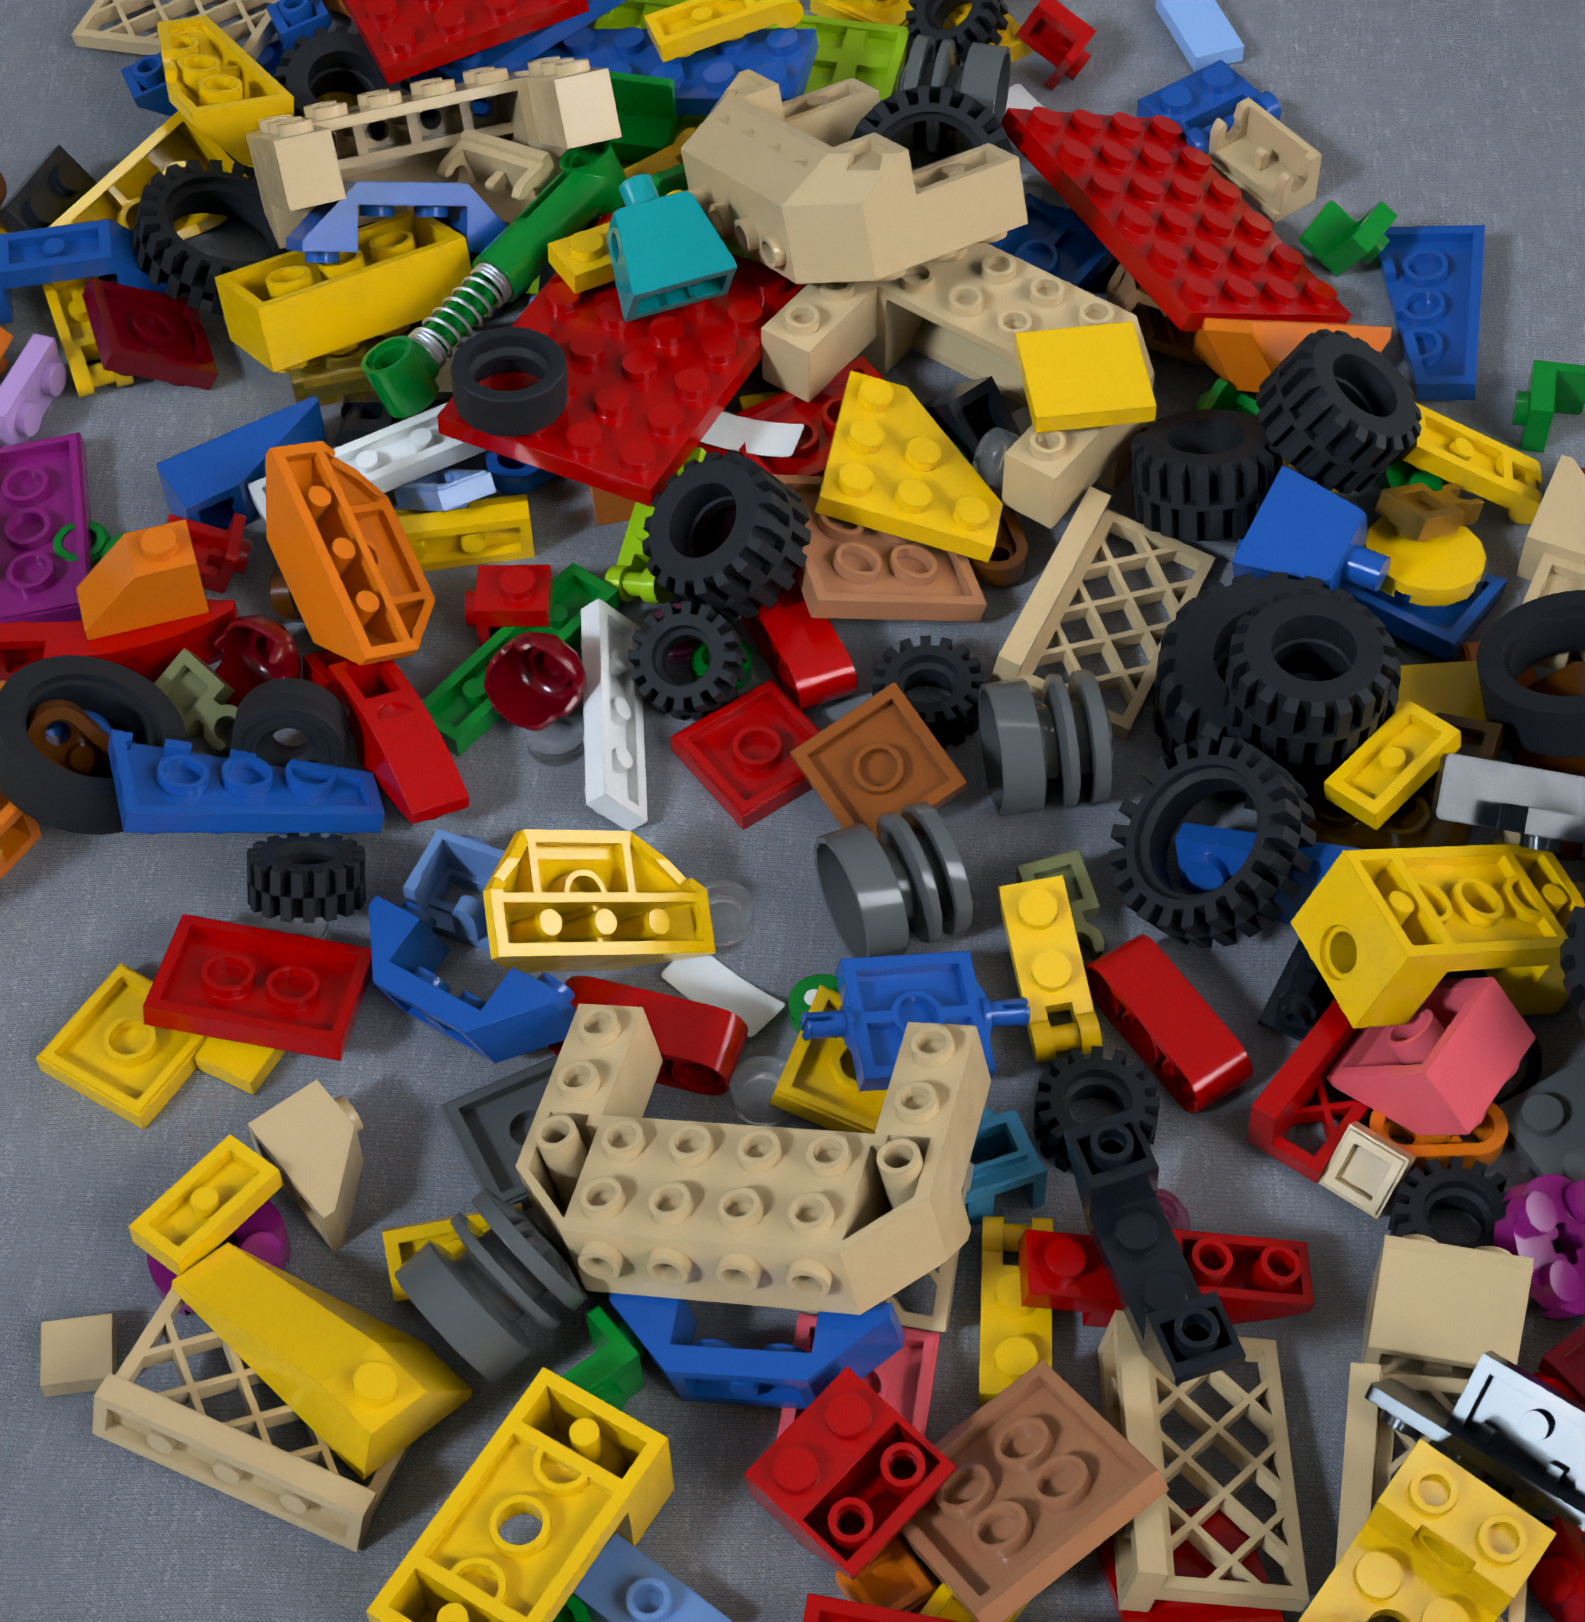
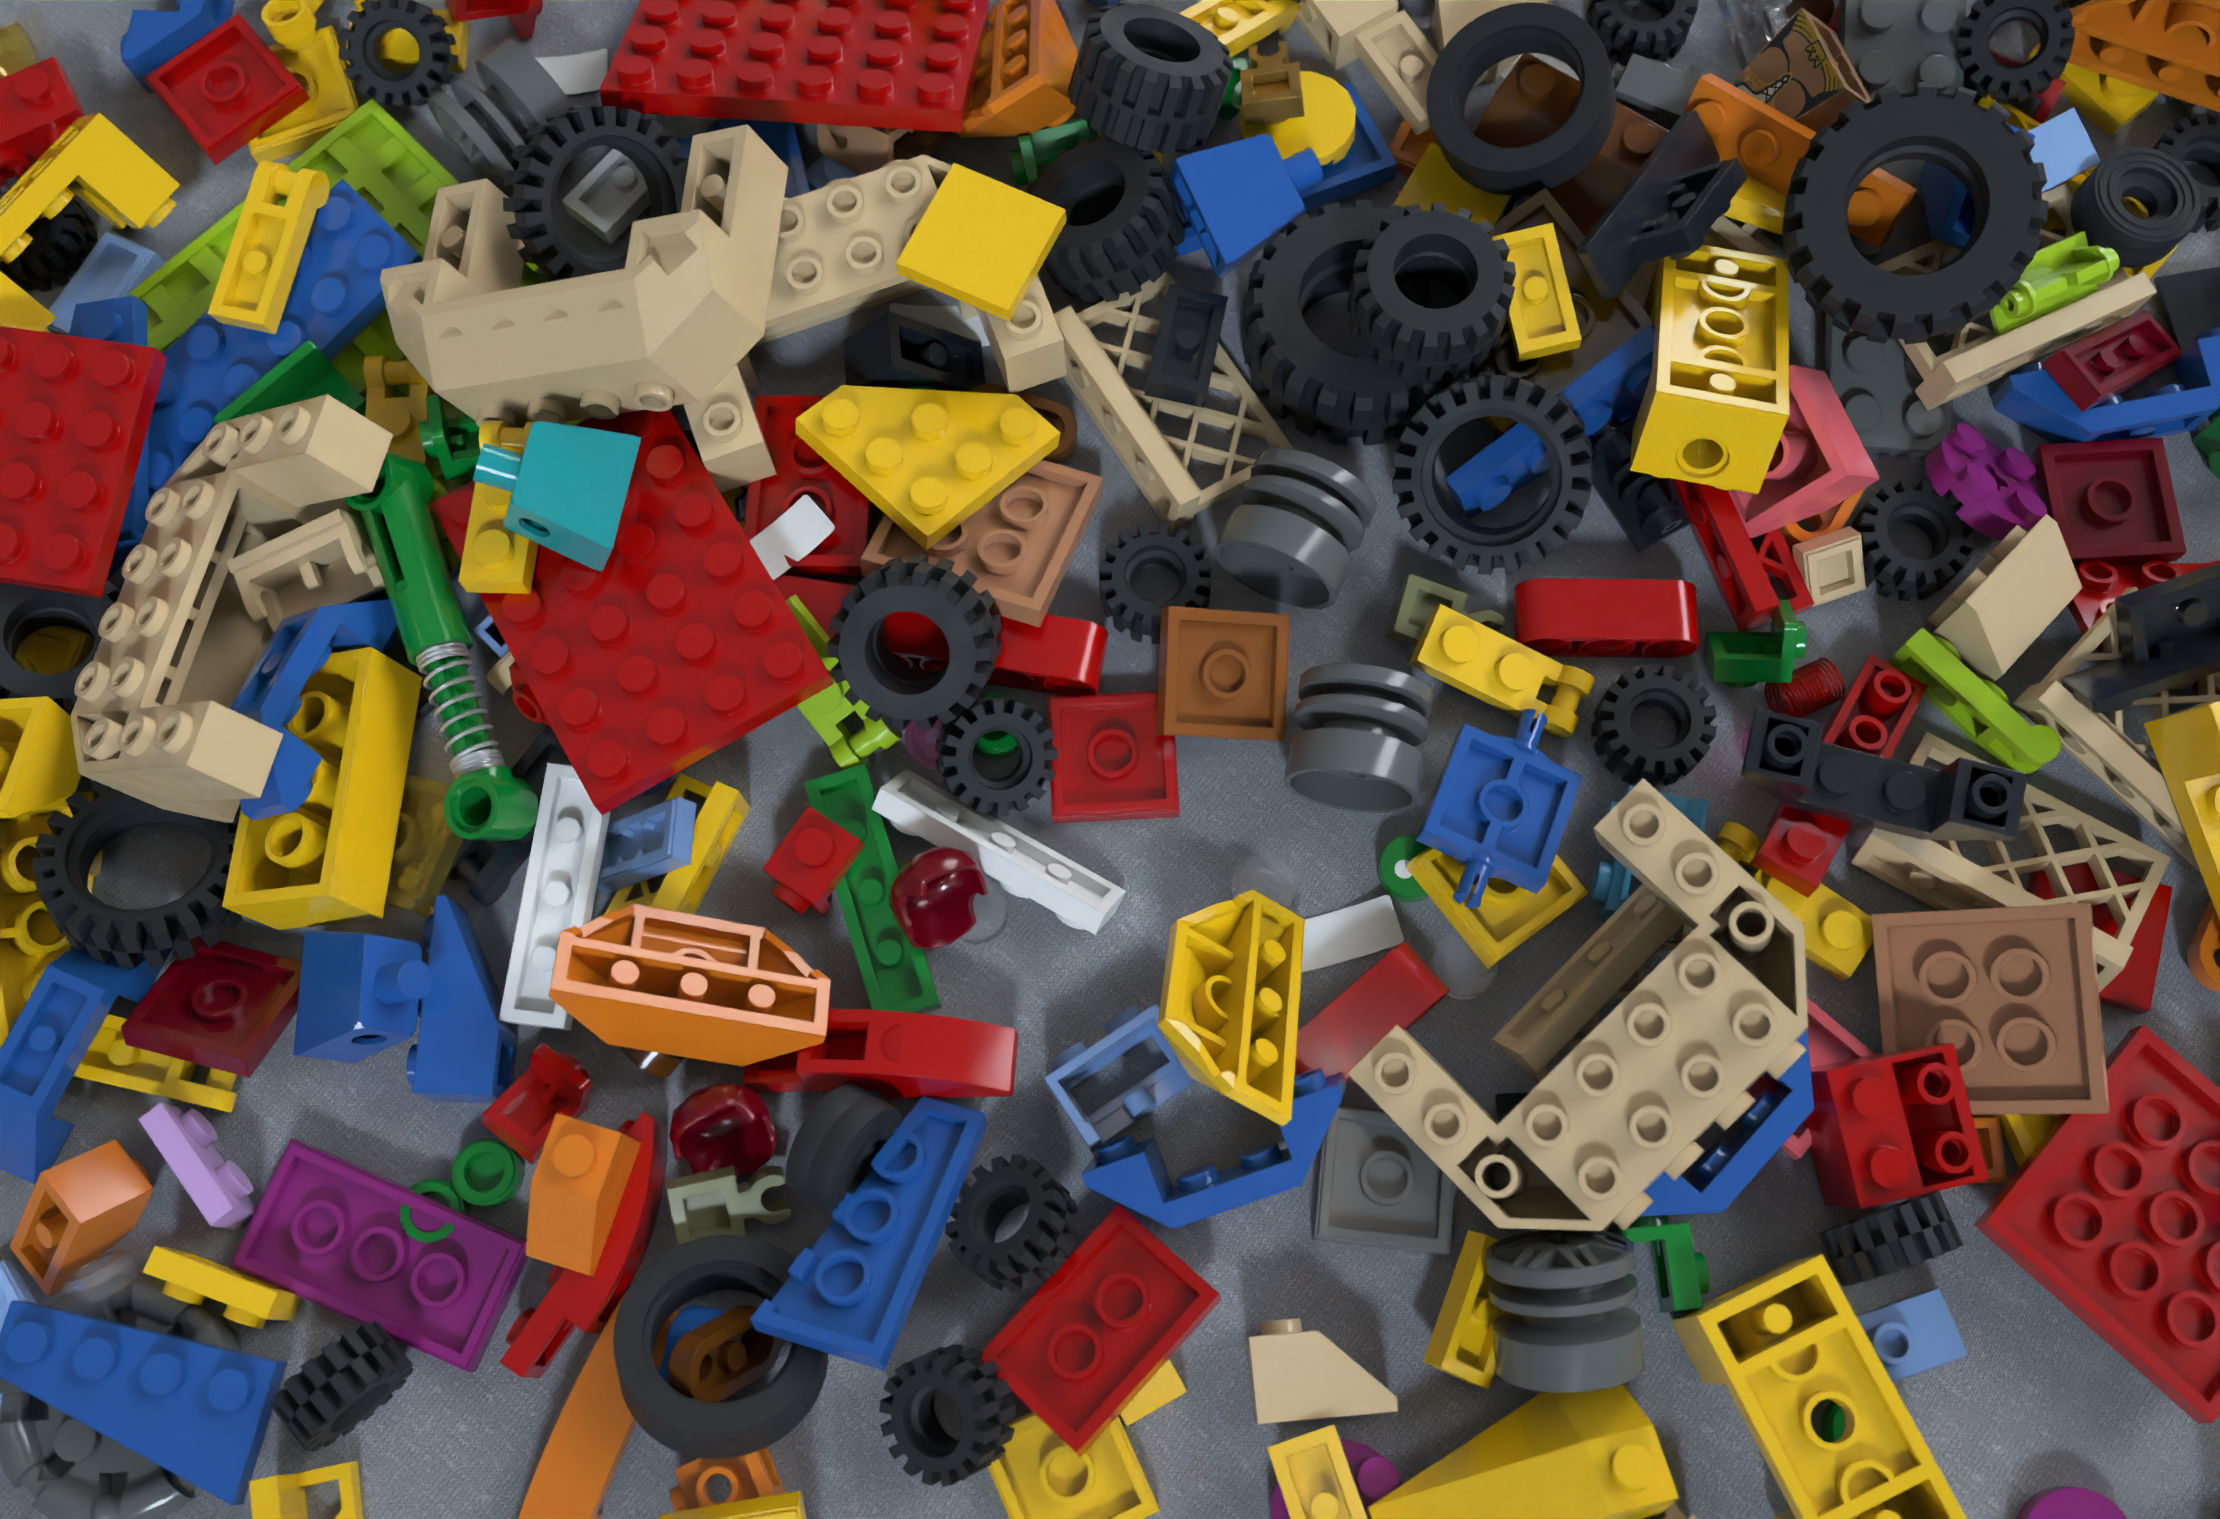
camera: 55 degrees left, 20 degrees up
(123, 919) = (917, 1426): none -> black tyre
(210, 396) = (357, 994): none -> blue torso
(509, 411) = (604, 678): black tyre -> none
(740, 1530) = (1891, 1239): none -> black tyre
(990, 454) = (967, 364): clear tile -> none
(1144, 590) = (1186, 346): none -> black plate
(1225, 1228) = (1806, 690): none -> red piece
(1226, 1153) = (1756, 657): none -> green bracket
(1324, 1412) = (1975, 705): none -> lime plate

